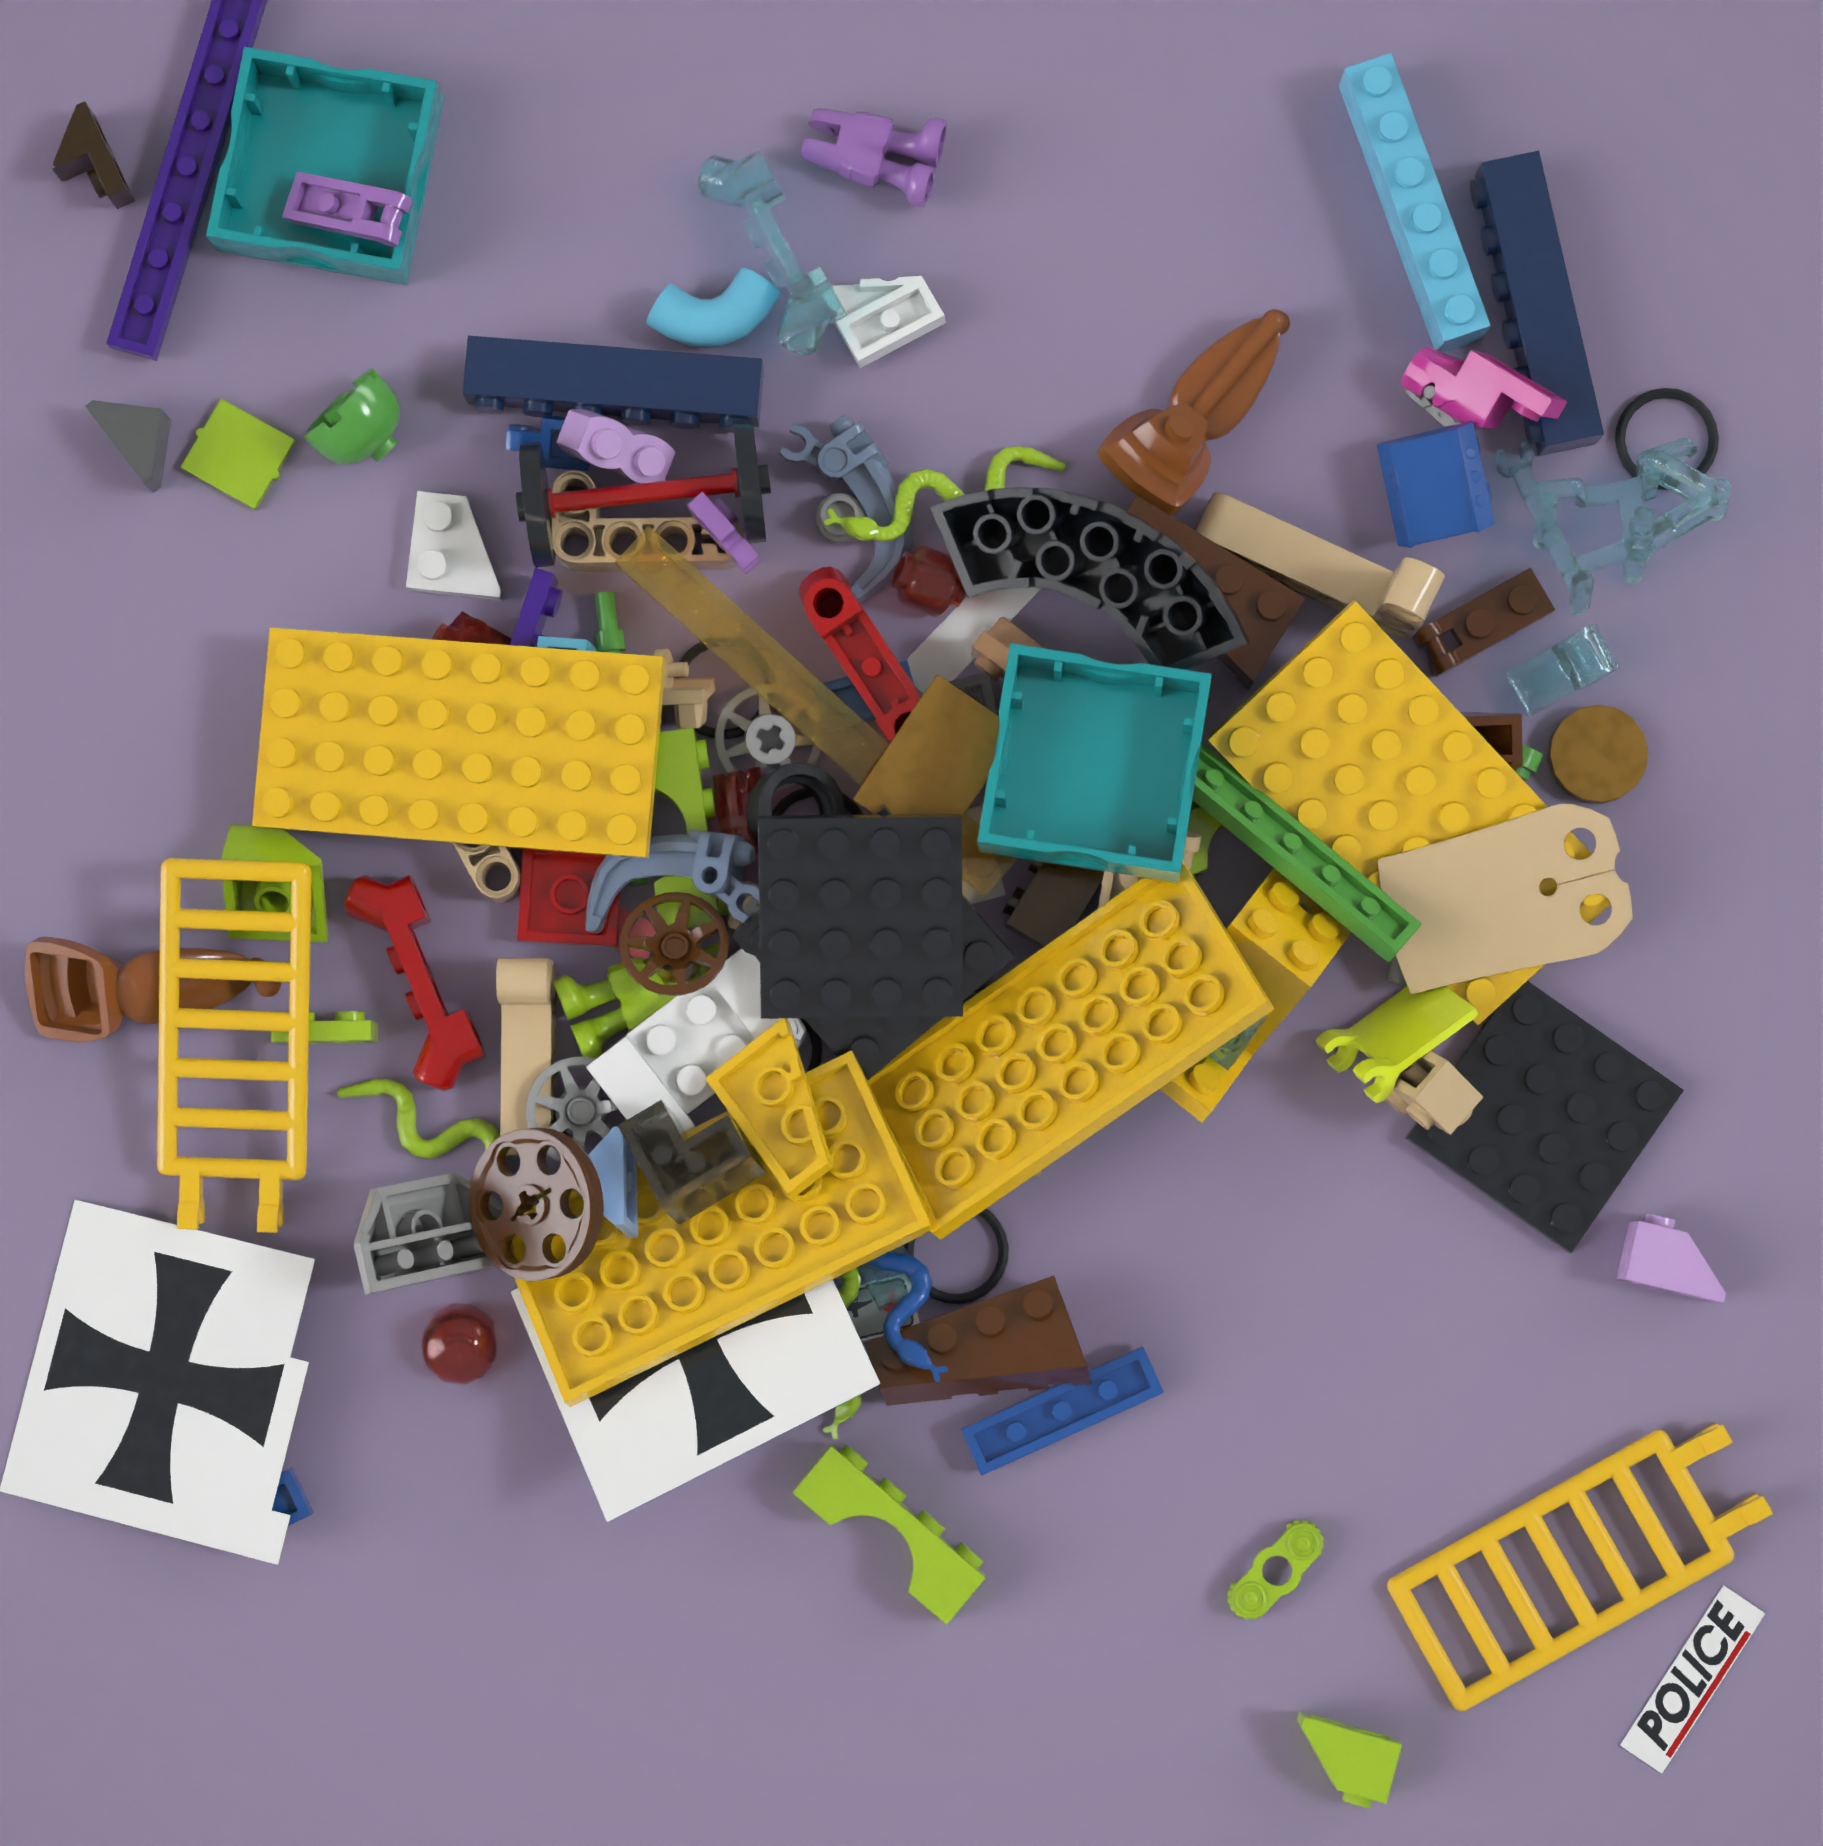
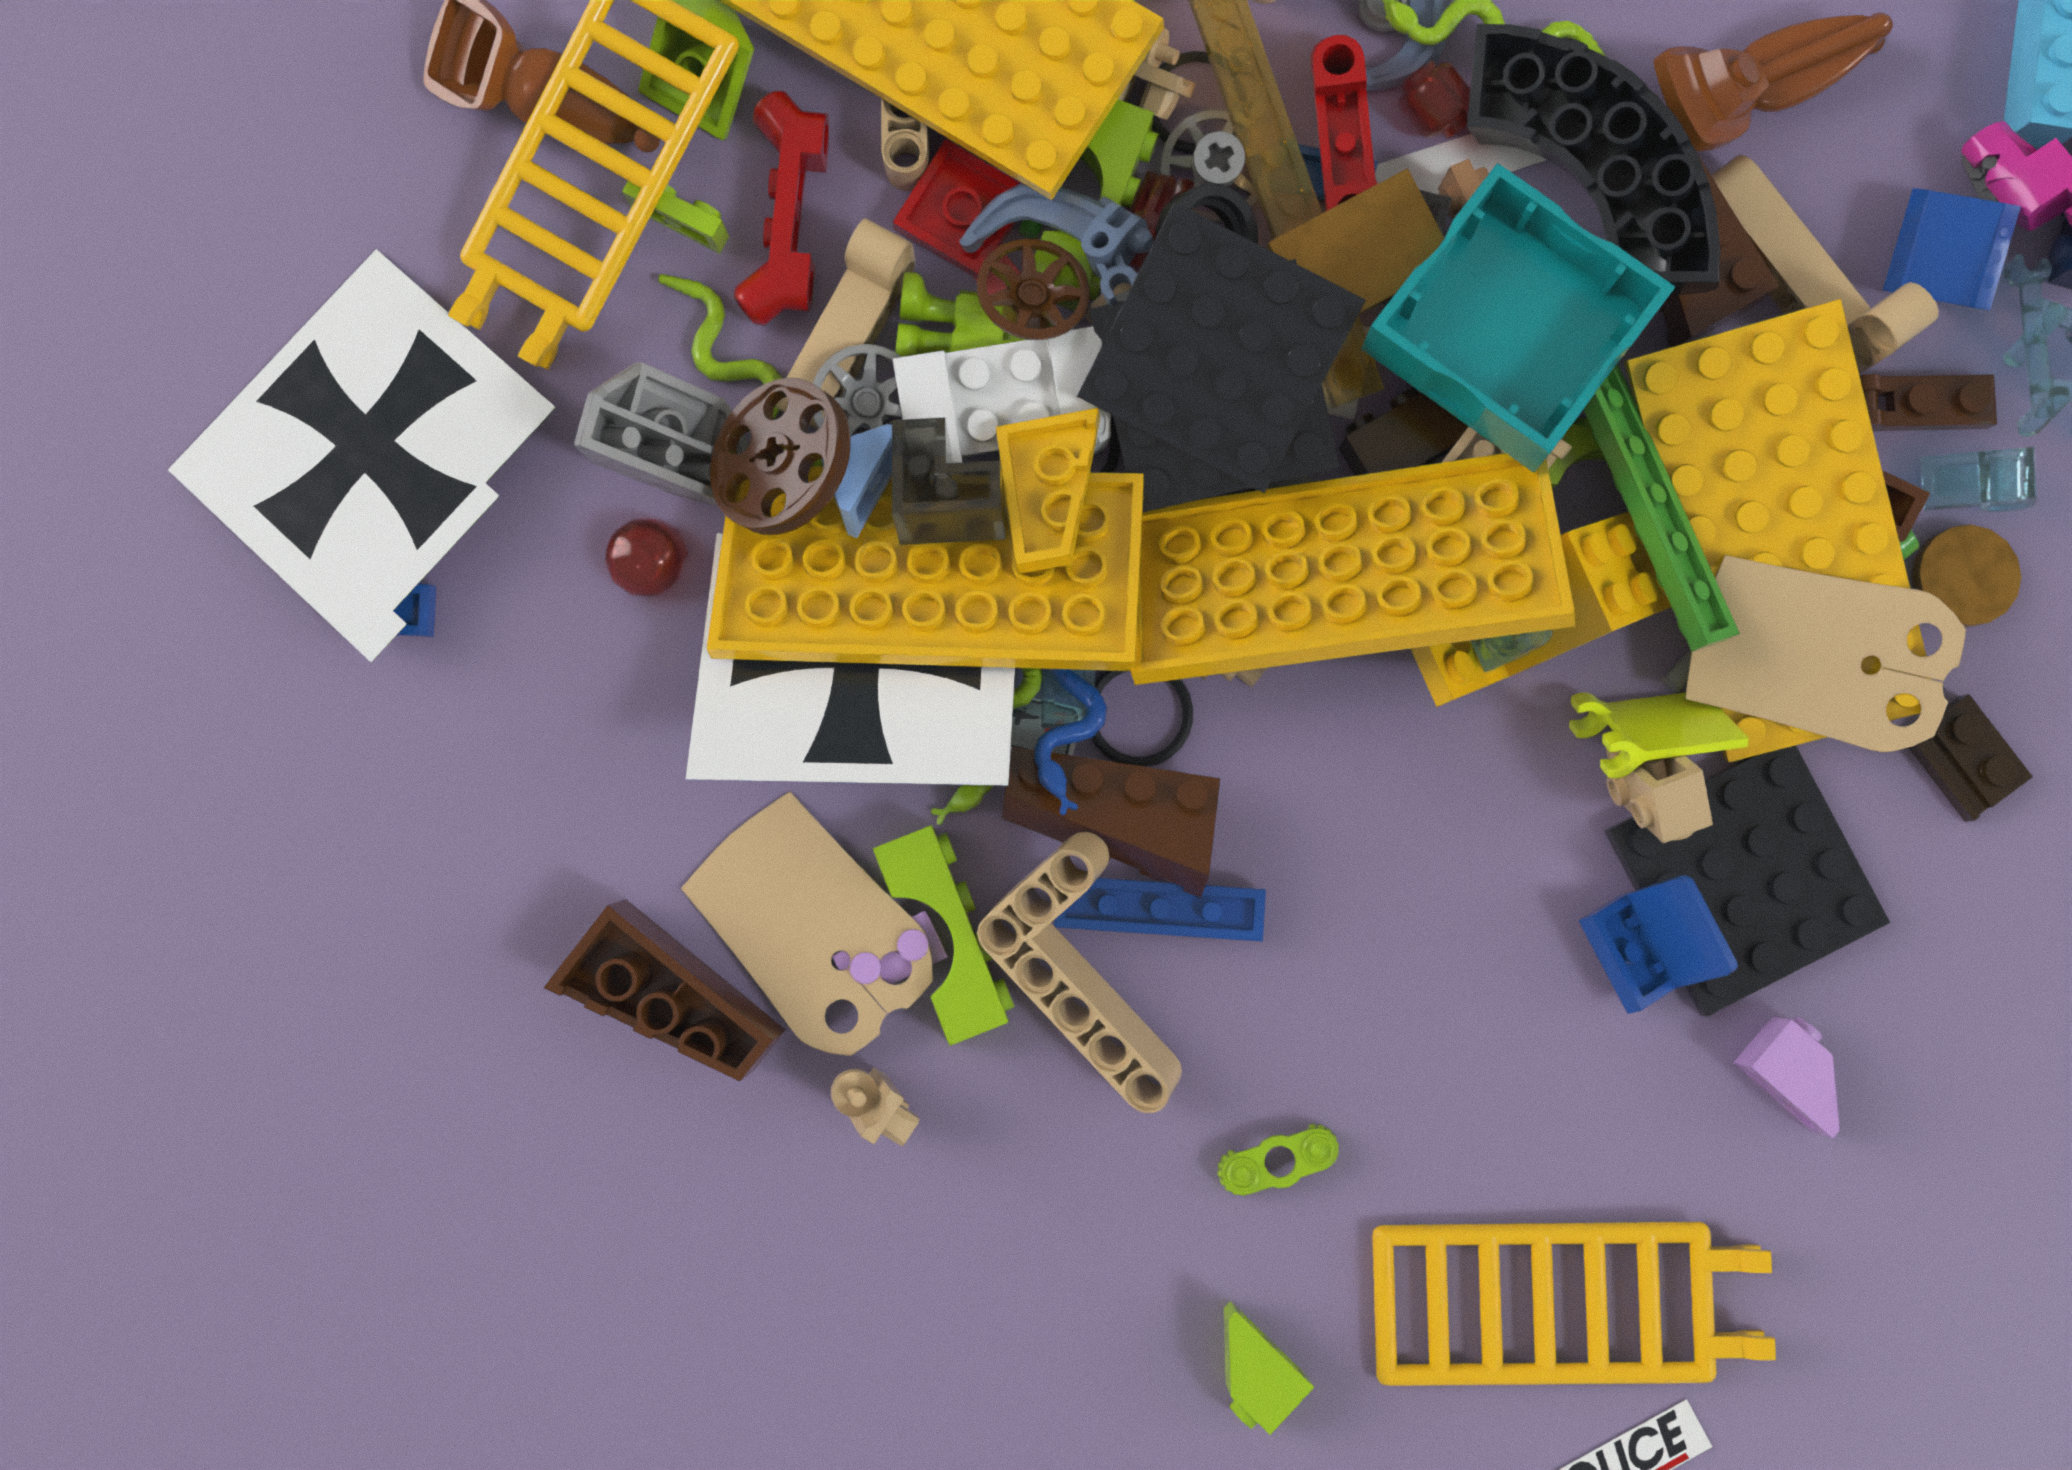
camera: 25 degrees right, 0 degrees up
(681, 1710) = (664, 992): none -> reddish brown wedge
(744, 1581) = (788, 903): none -> tan piece
(855, 1575) = (897, 964): none -> lavender plate
(909, 1709) = (873, 1105): none -> tan hips
(1022, 1509) = (1075, 977): none -> tan beam
(1492, 1216) = (1657, 941): none -> blue bracket
(1680, 911) = (1970, 760): none -> dark brown plate

